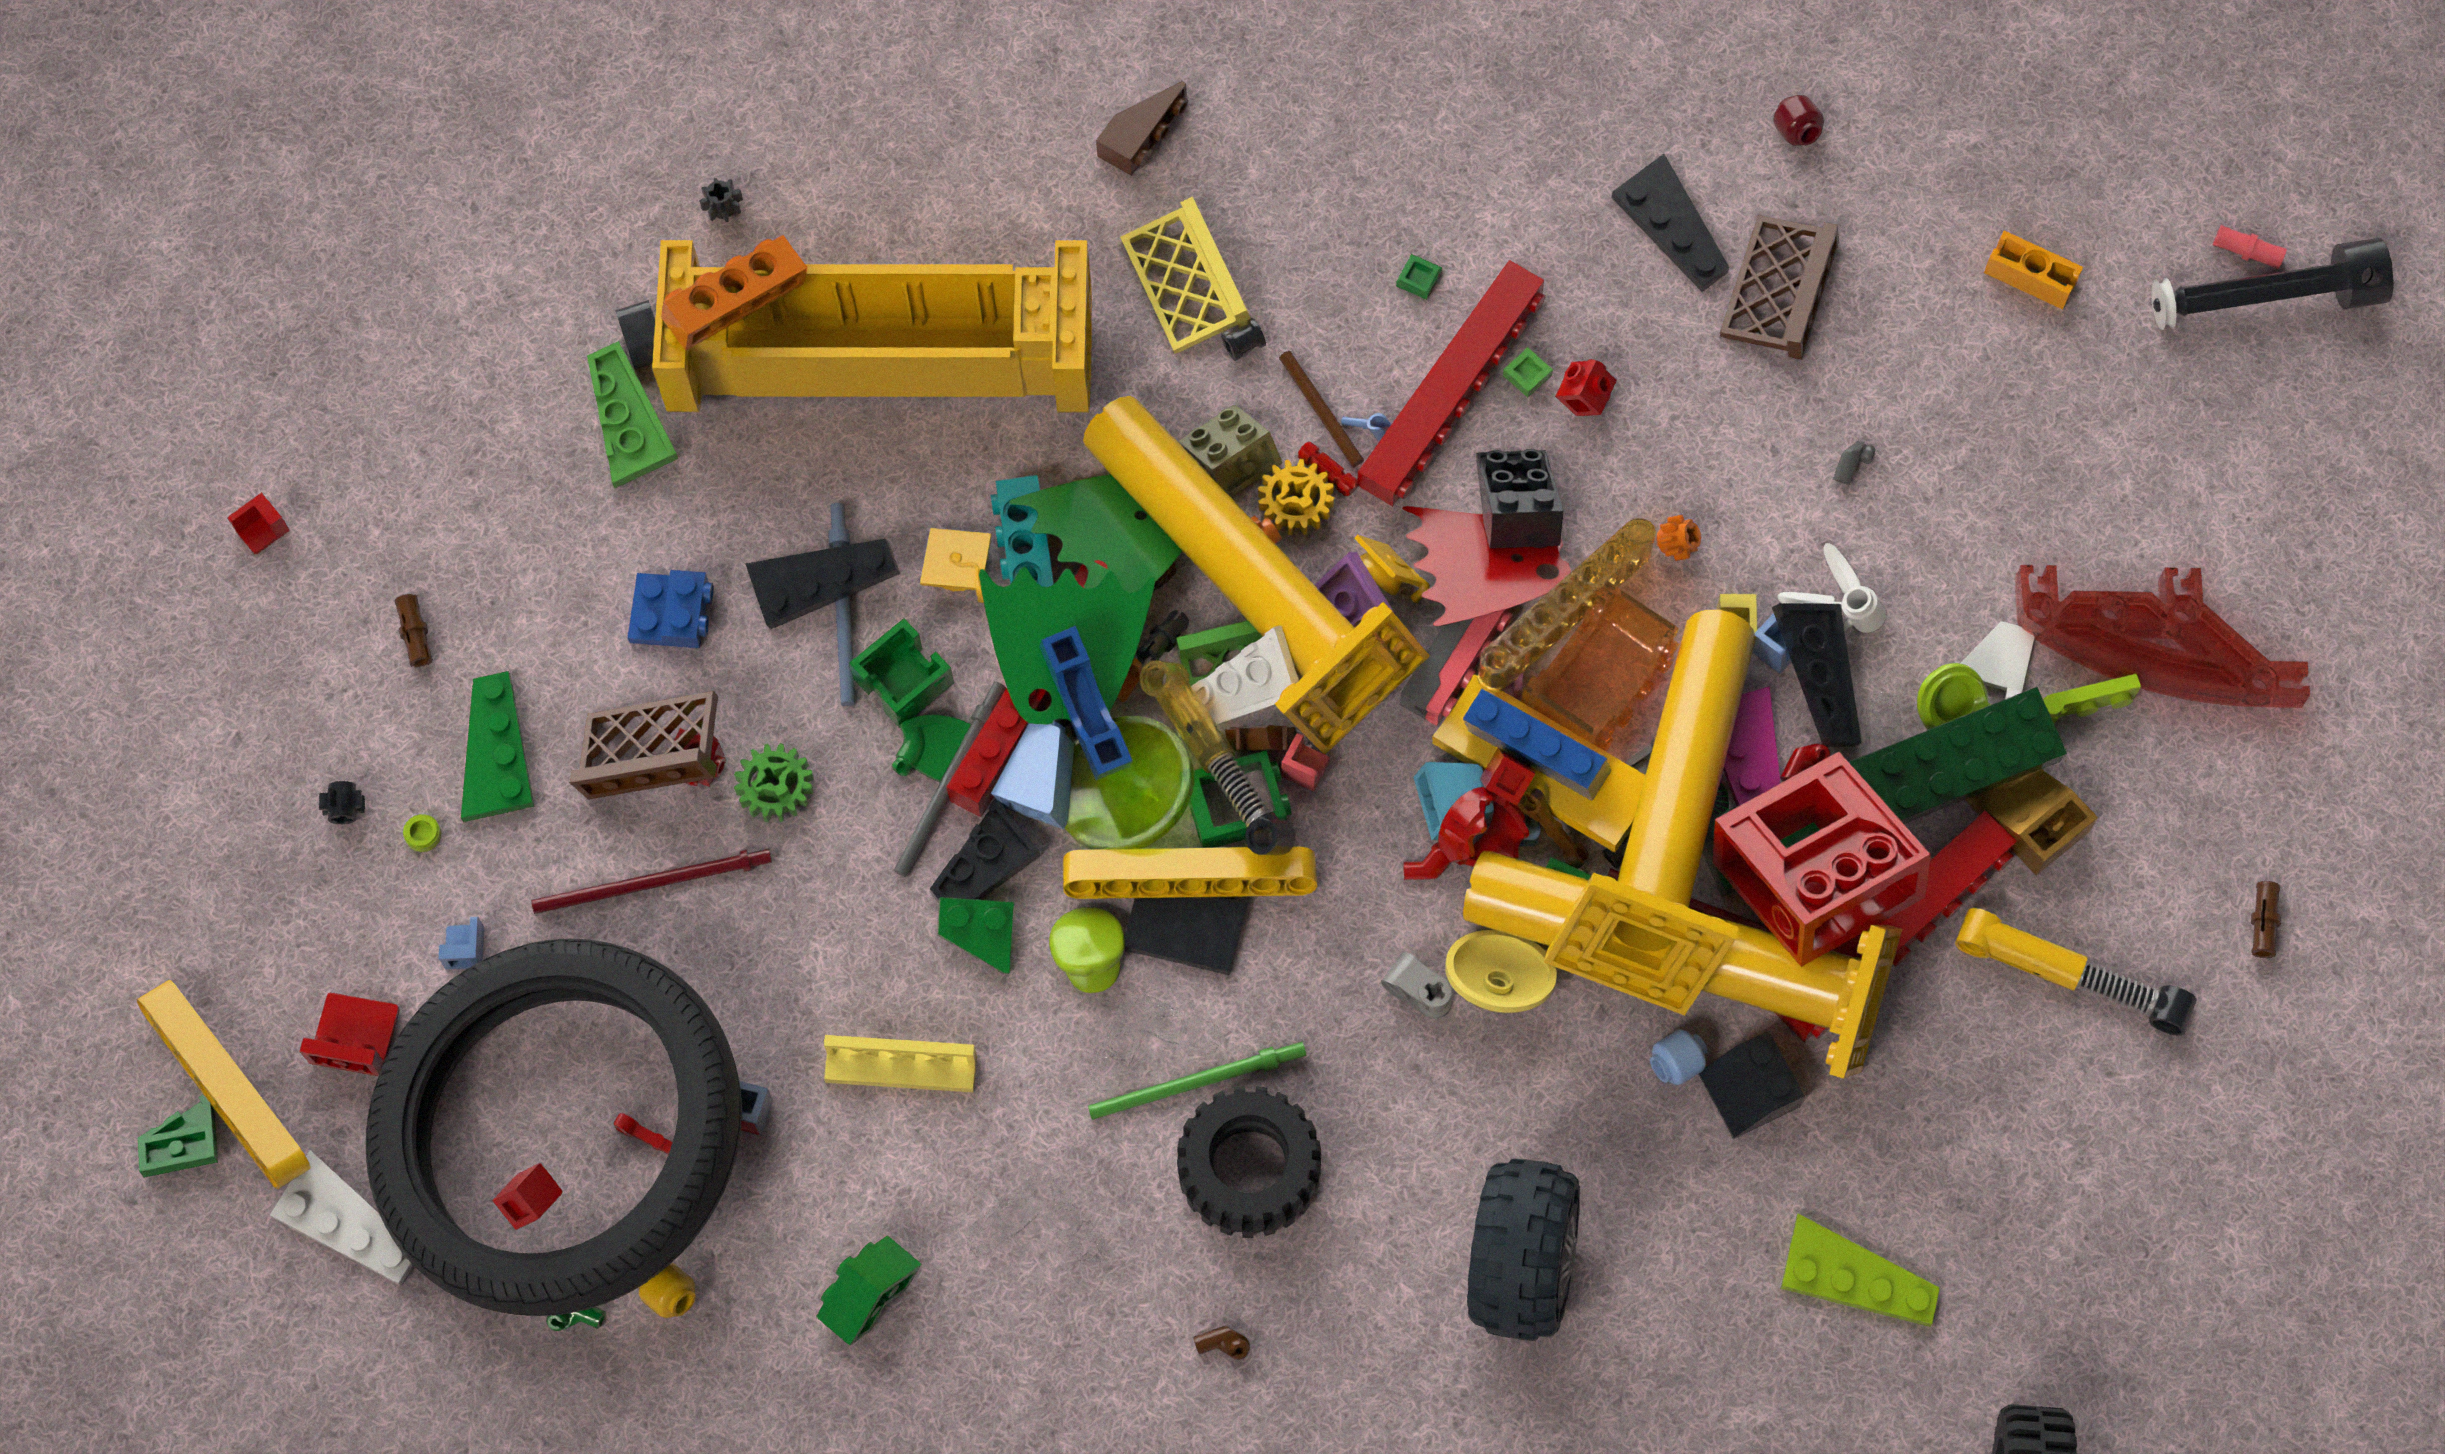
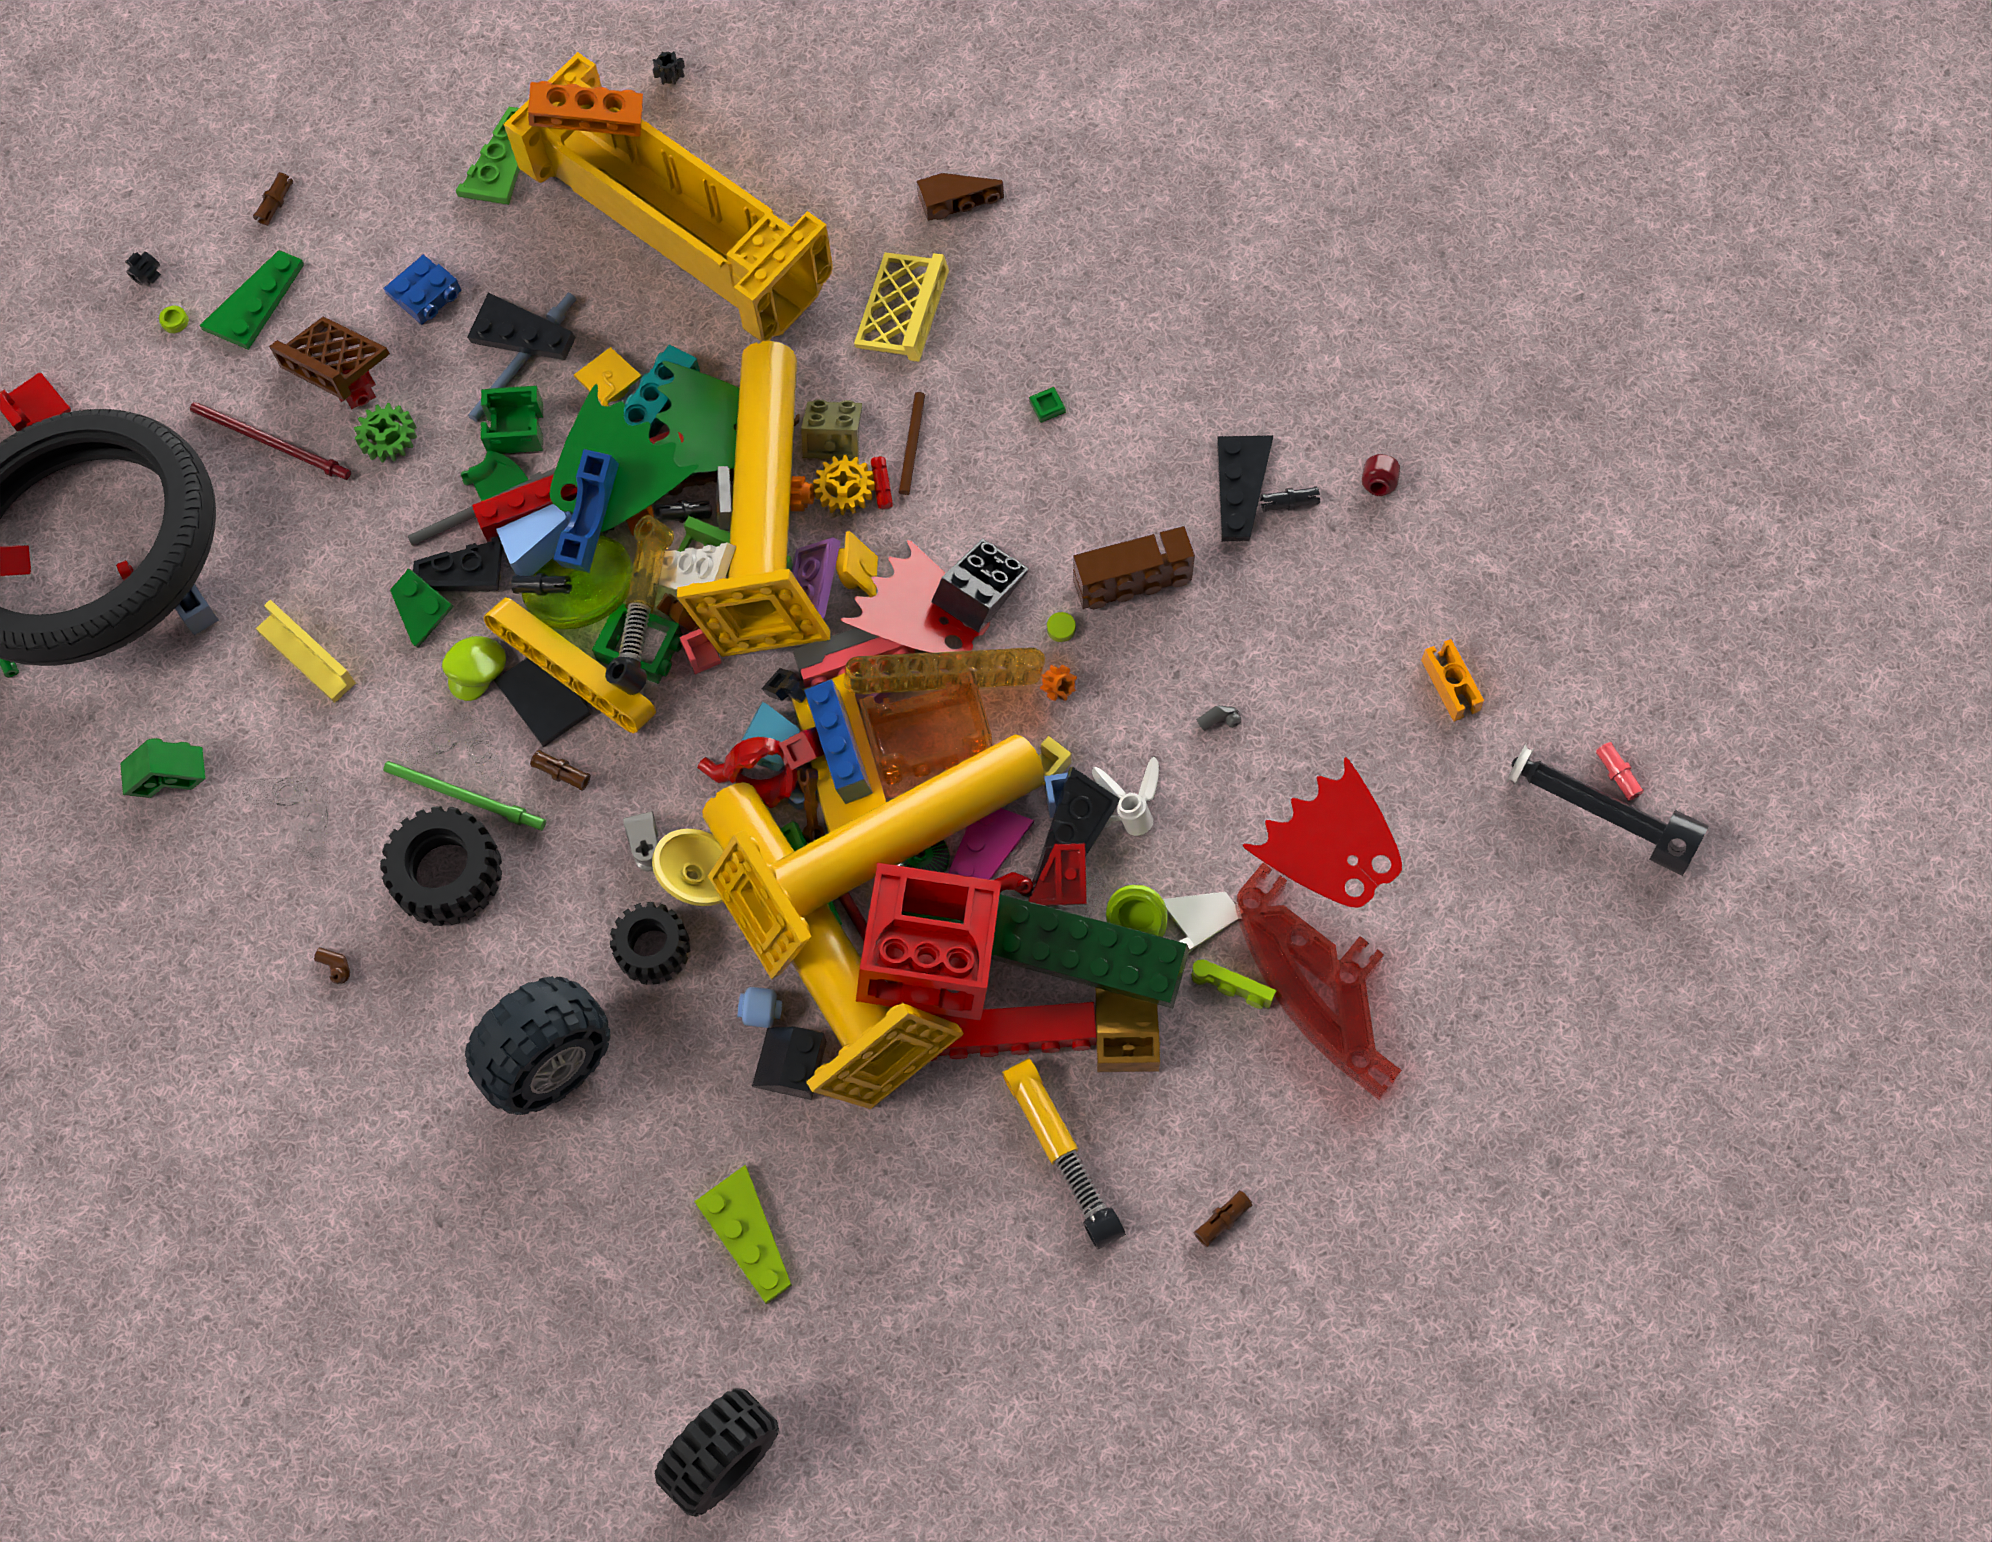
camera: 40 degrees right, 0 degrees up
(258, 523) = (246, 77): red panel -> none
(463, 945) = (137, 400): medium blue panel -> none
(669, 1292) = (58, 684): yellow head -> none
(1095, 812) = (541, 584): none -> black pin
(1201, 596) = (723, 498): none -> tile
(1243, 339) = (900, 366): black bush -> none
(1272, 982) = (560, 770): none -> reddish brown pin
(1374, 424) = (933, 475): medium blue hand -> none
(1416, 735) = (784, 684): none -> black plate
(1451, 383) = (1004, 483): red brick -> none
(1516, 1107) = (657, 965): none -> black tyre
(1527, 372) = (1059, 511): bright green plate -> none
(1586, 387) = (1083, 539): red brick -> none
(1628, 483) = (1061, 627): none -> lime tile
(1656, 375) = (1133, 568): none -> reddish brown piece
(1733, 204) = (1290, 499): none -> black pin
(1810, 285) = (1284, 592): fence -> none
(1854, 715) = (1062, 877): none -> red wing
(2042, 497) = (1325, 833): none -> red piece

